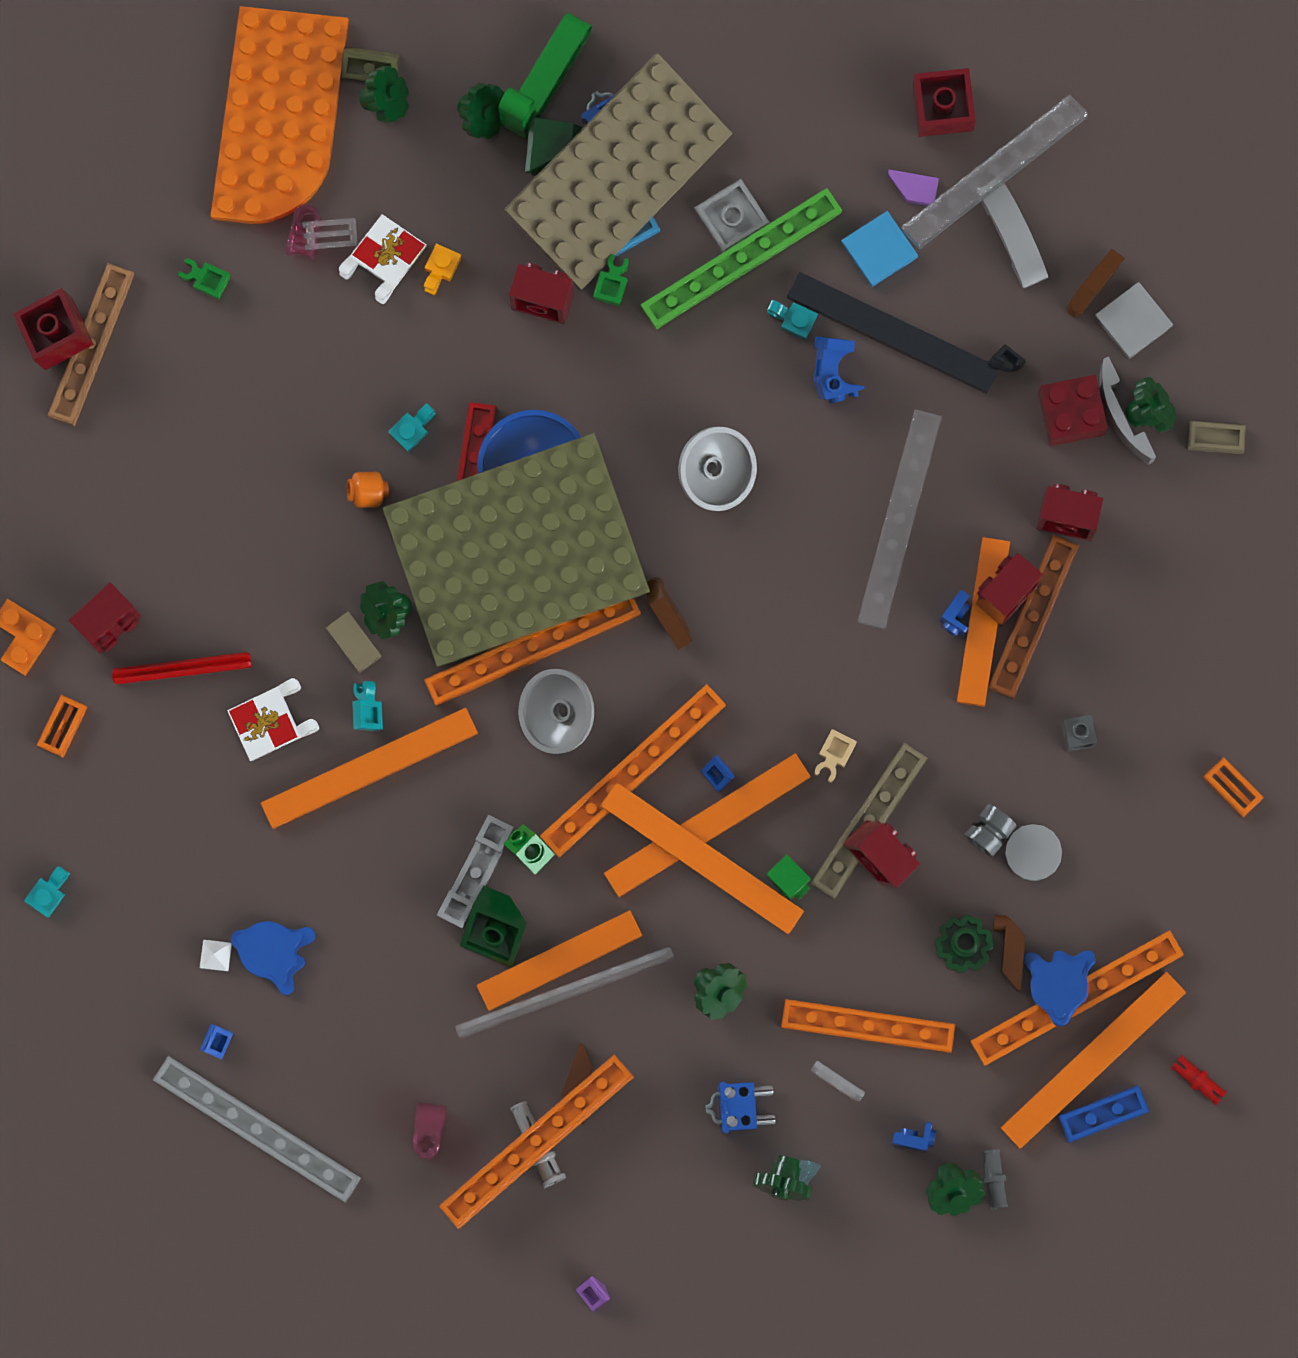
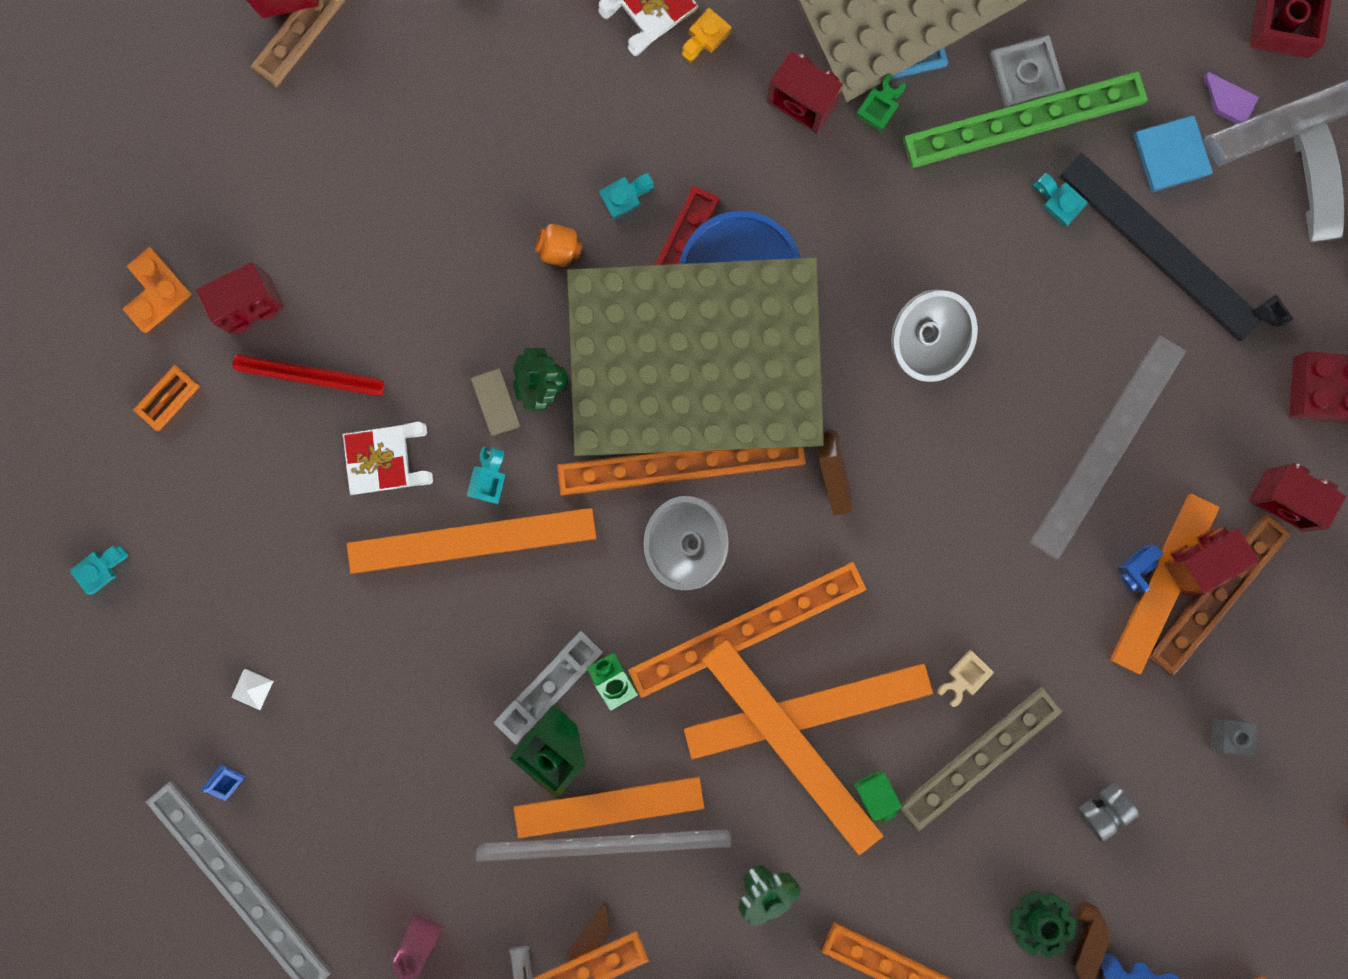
camera: 15 degrees right, 5 degrees up
(271, 952) = (310, 704): blue tile -> none
(717, 773) = (836, 660): blue slope -> none
(826, 369) = (1083, 261): blue tile -> none
(882, 853) = (988, 806): dark red brick -> none
(1033, 852) = (1145, 848): light grey tile -> none

